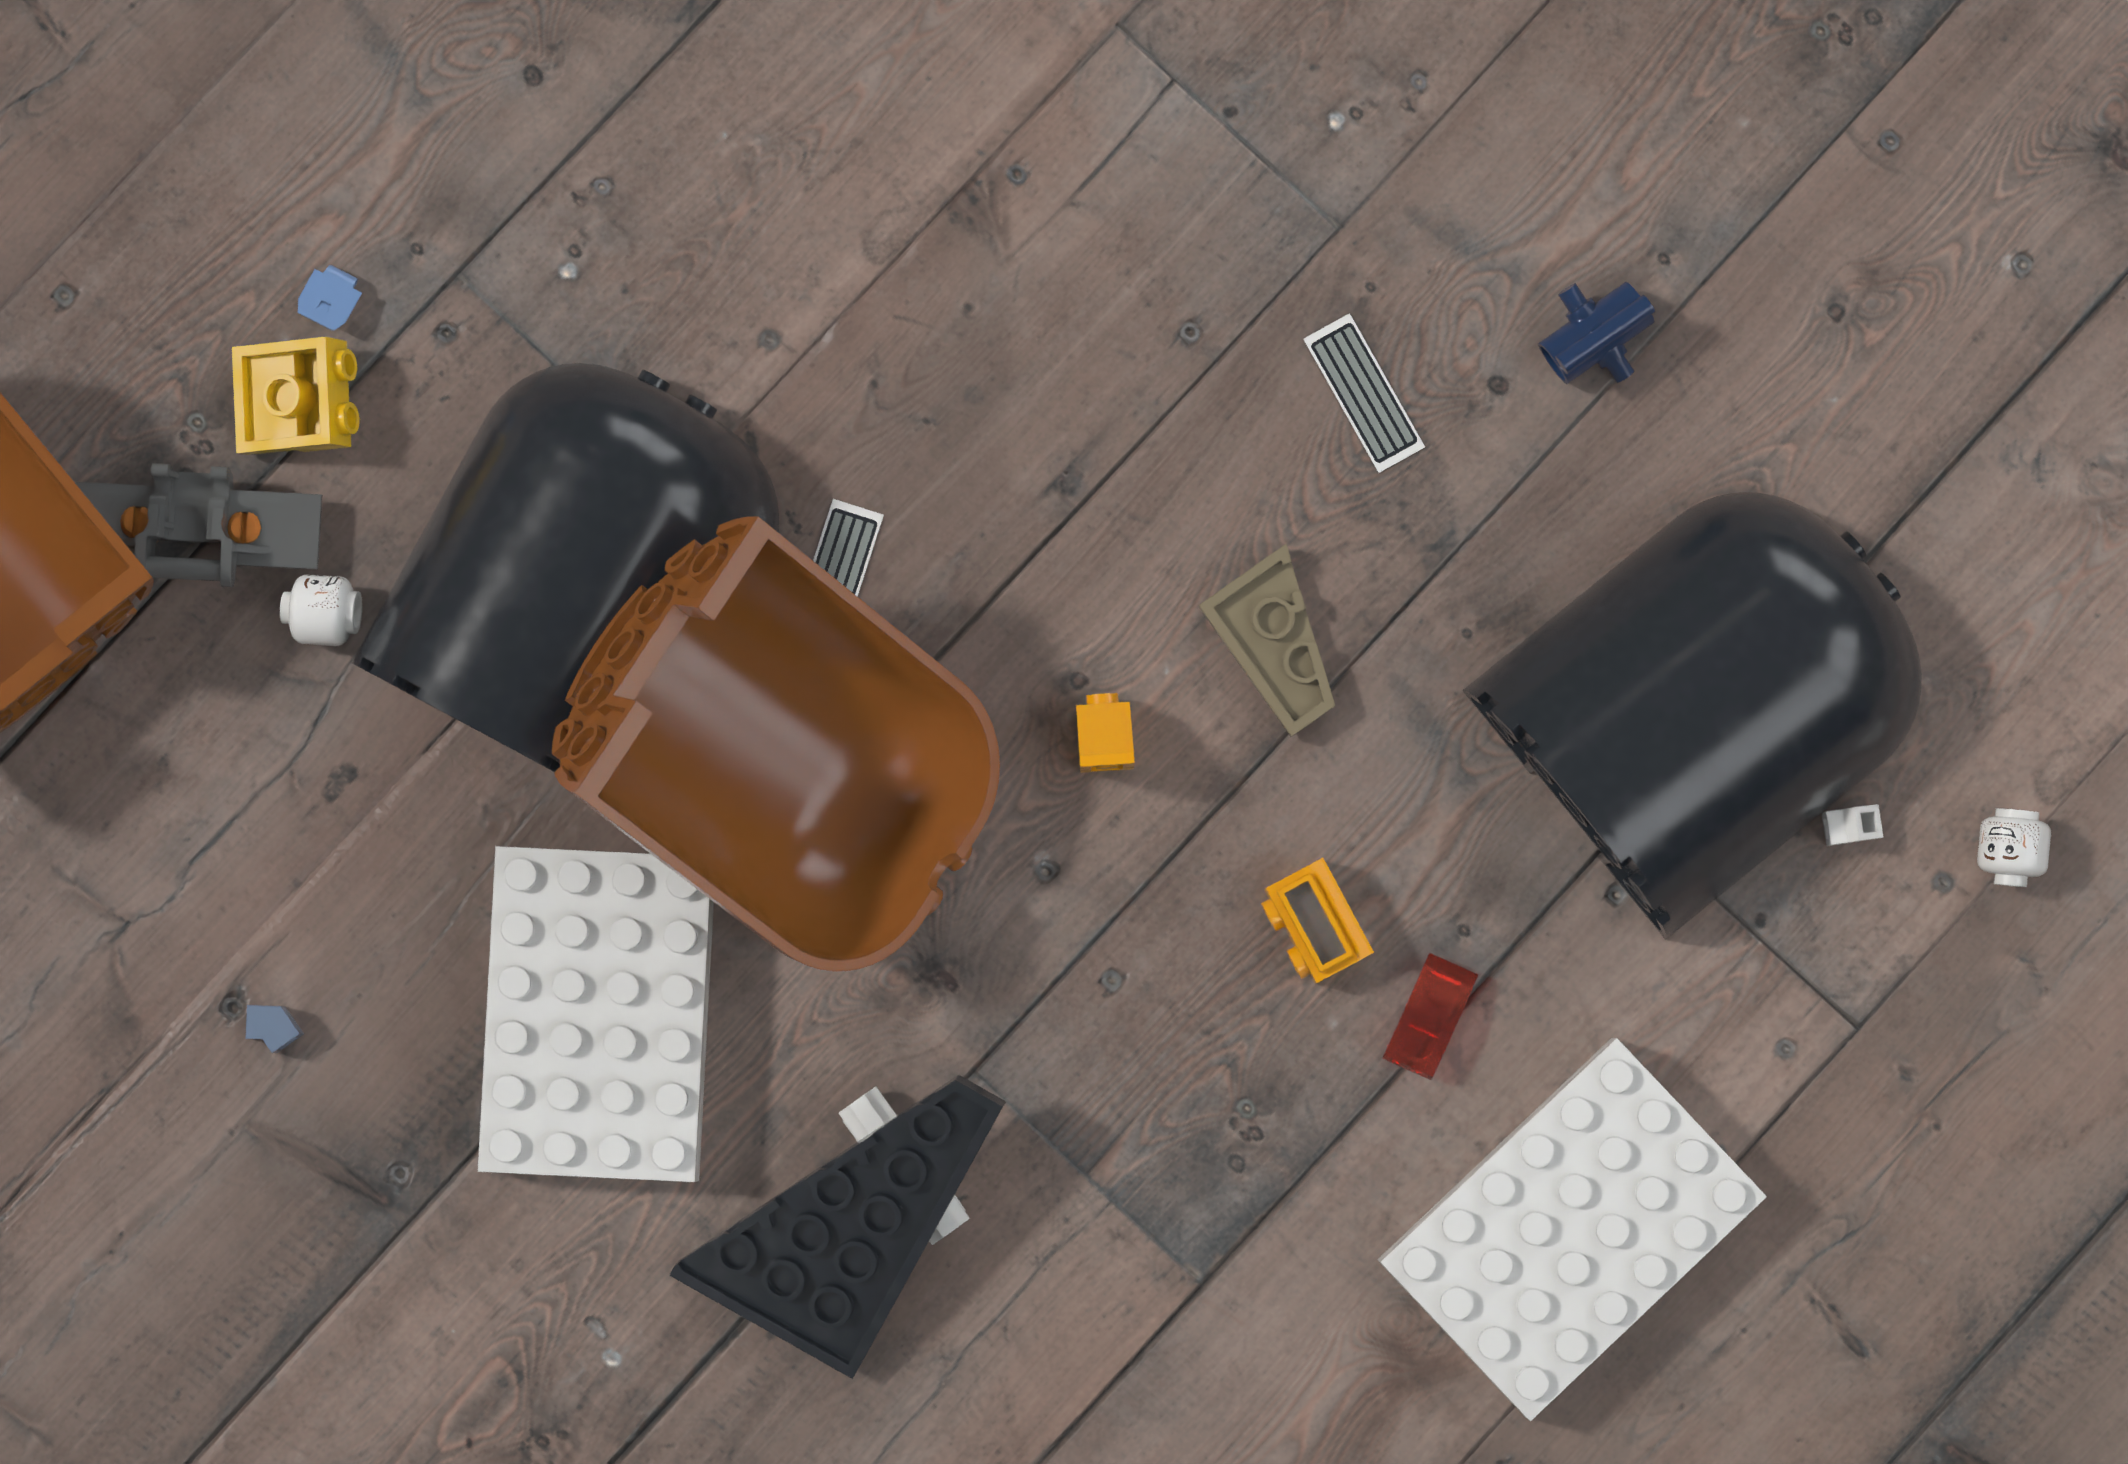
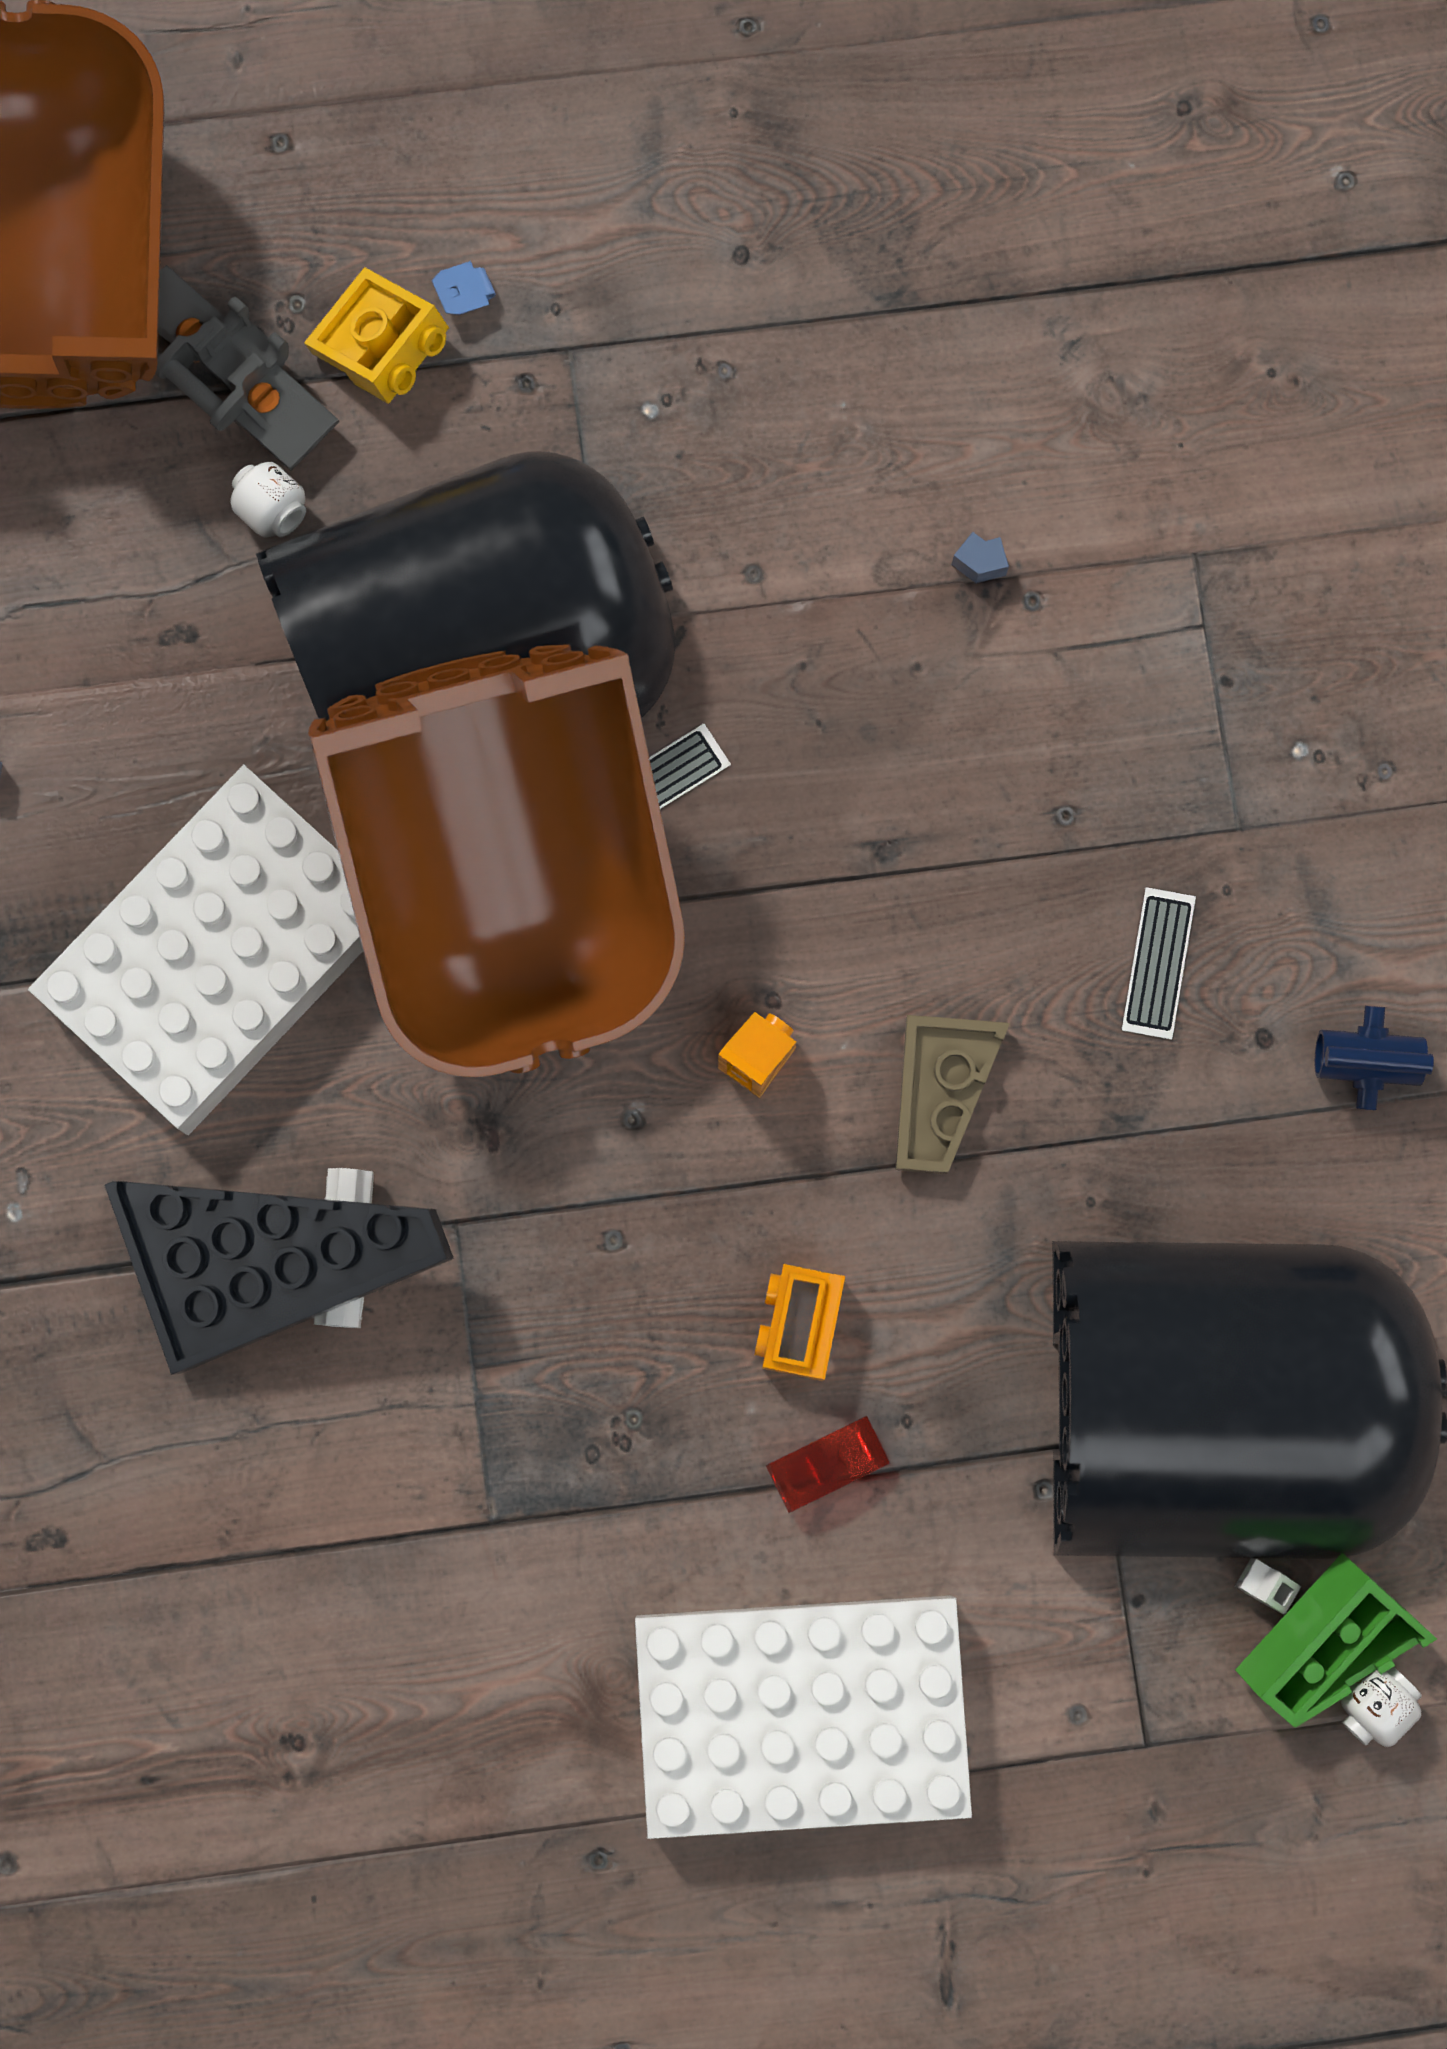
camera: 35 degrees right, 5 degrees down
(948, 175) = (981, 559): none -> sand blue piece
(1934, 829) = (1330, 1642): none -> bright green wedge

